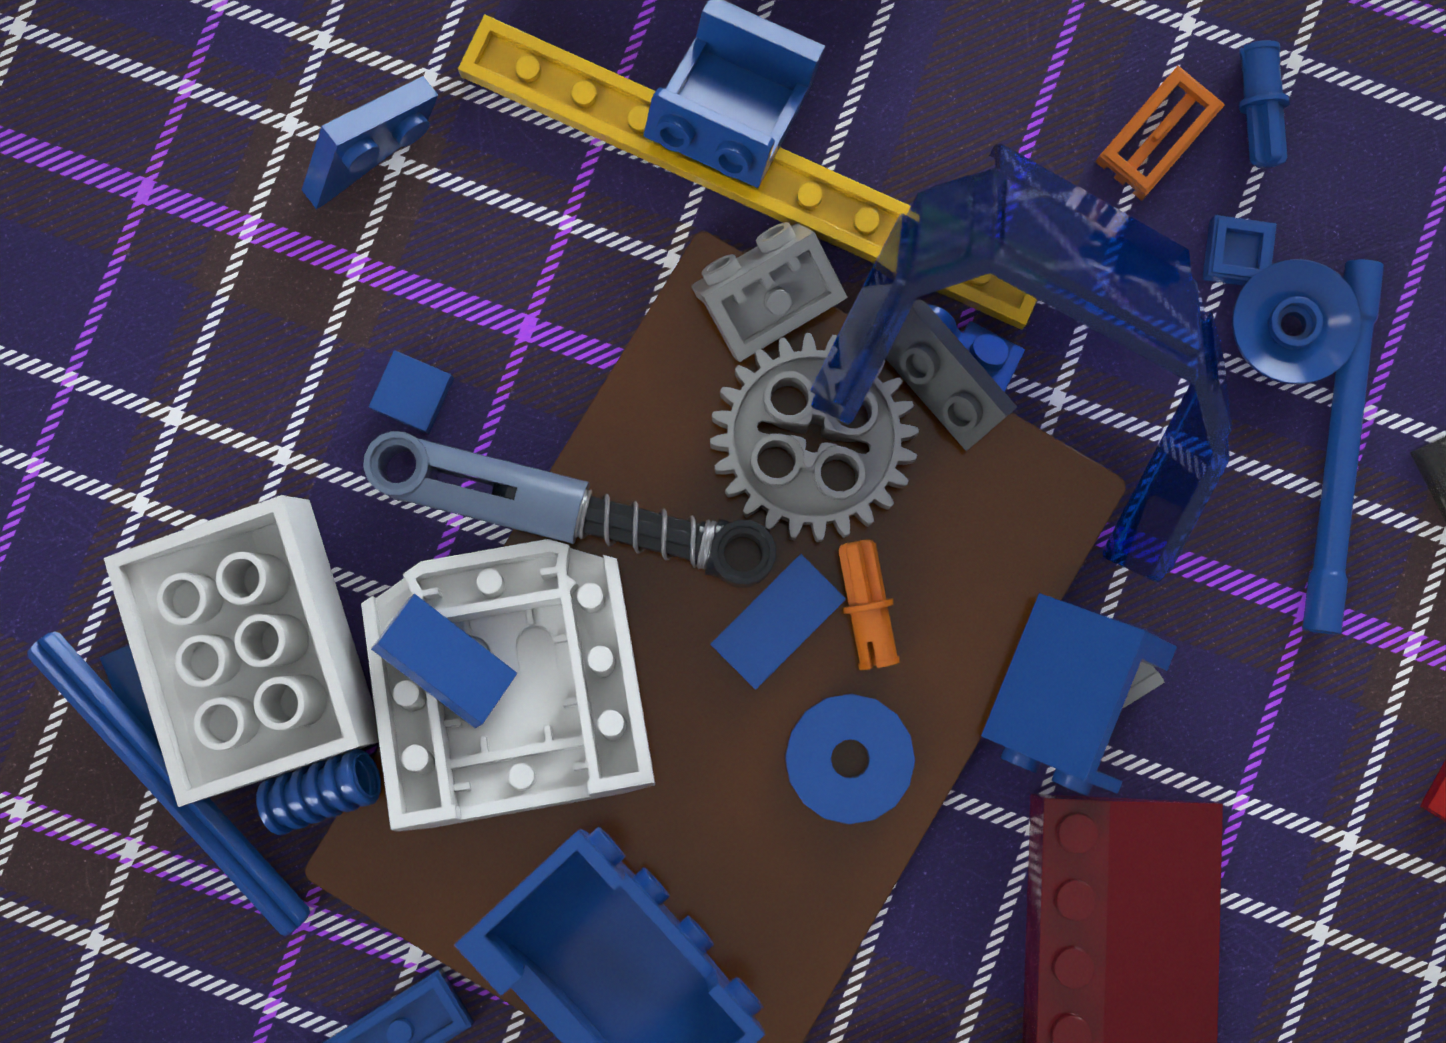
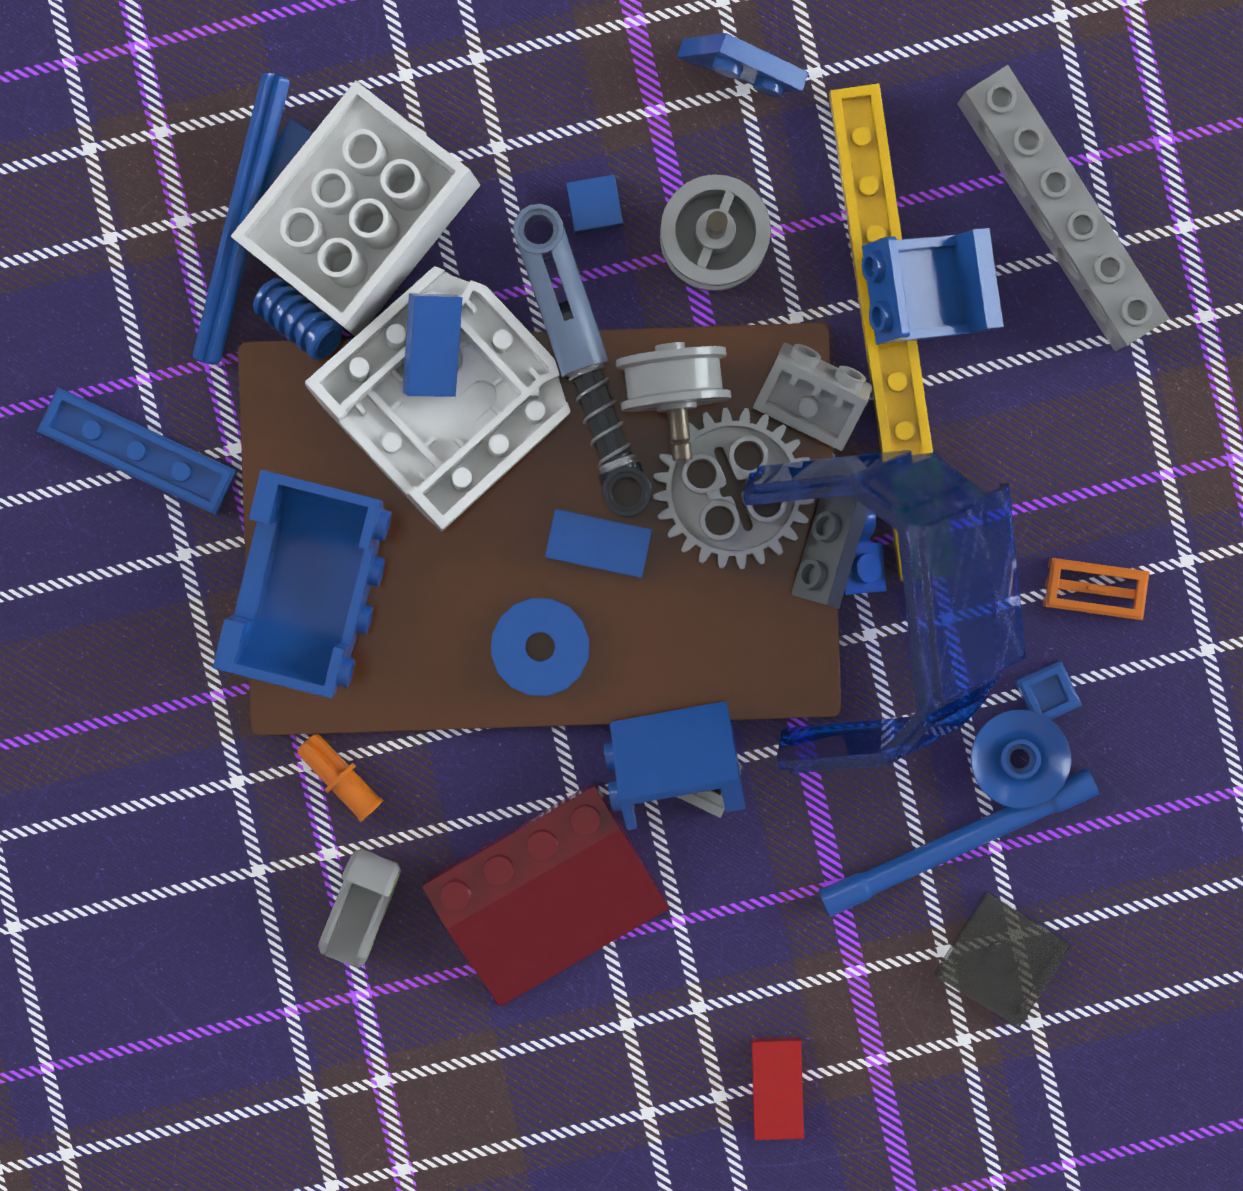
camera: 65 degrees right, 5 degrees up
(526, 282) = (715, 232): none -> light grey wheel
(659, 422) = (674, 382): none -> light grey wheel
(868, 604) = (647, 594): orange axle -> none
(1264, 103) = (1160, 646): blue axle -> none

